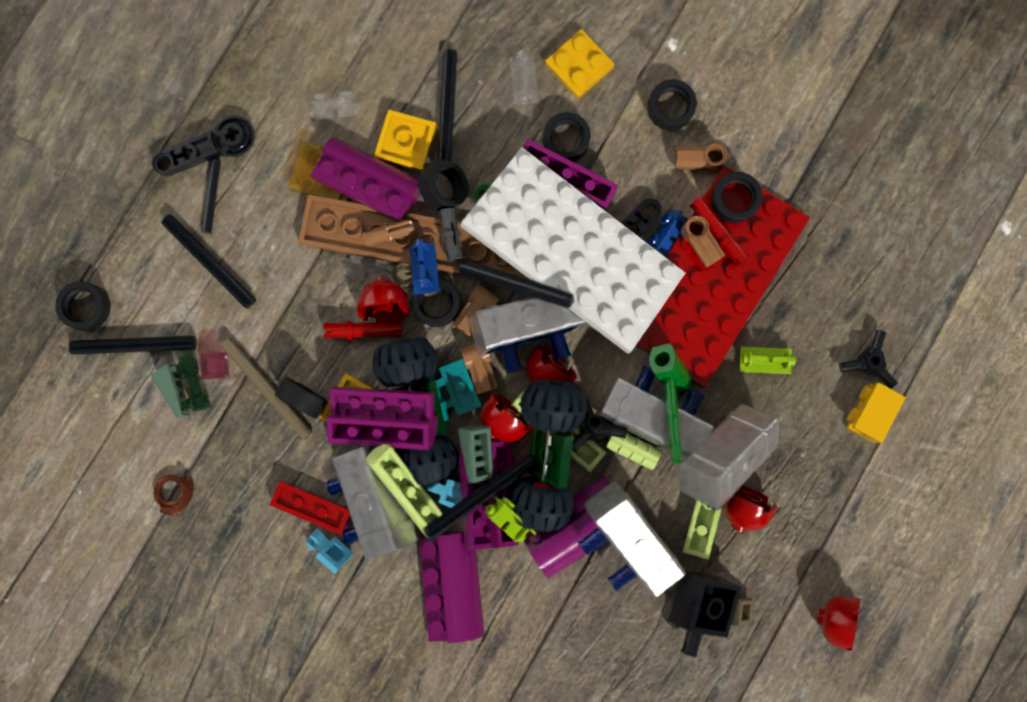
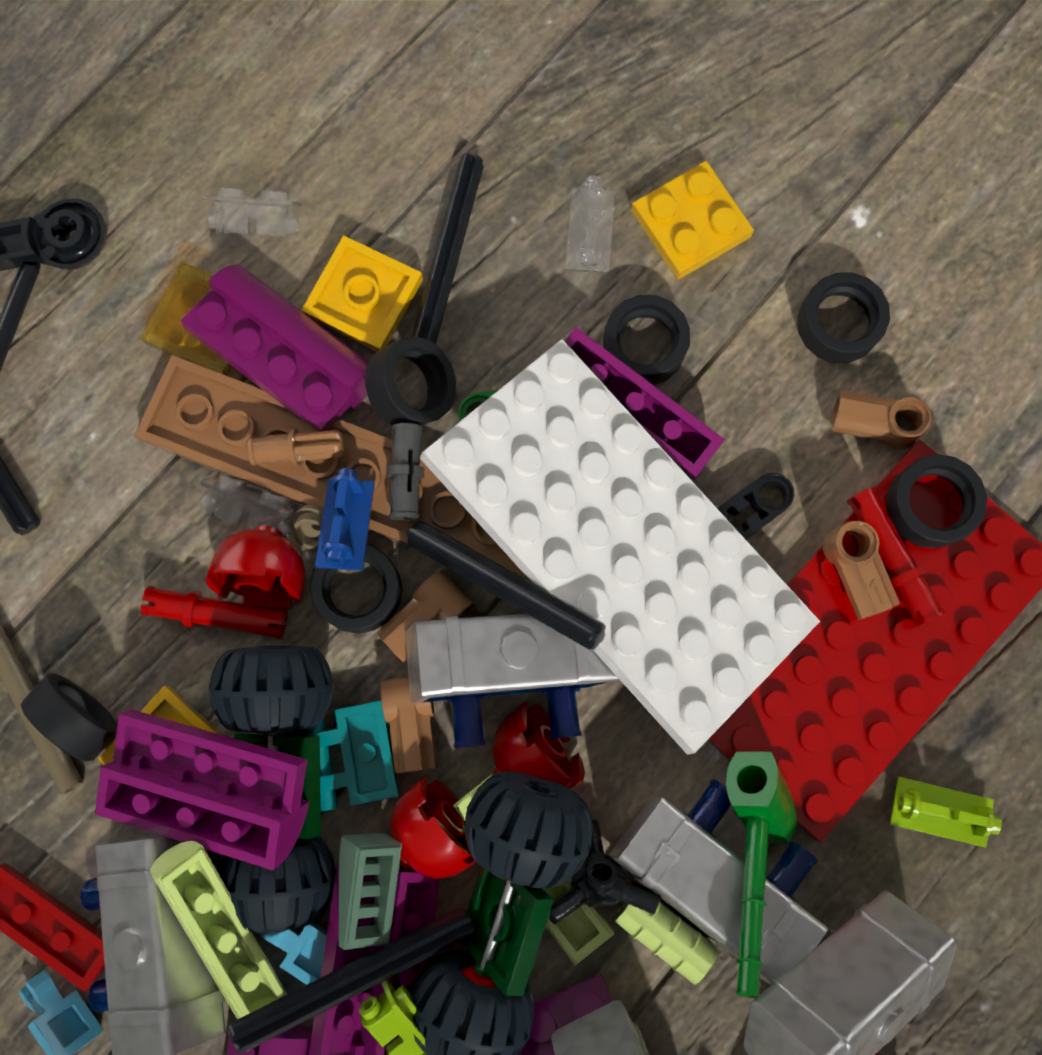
camera: 10 degrees right, 5 degrees down
(669, 227) = (804, 531): blue hinge -> none

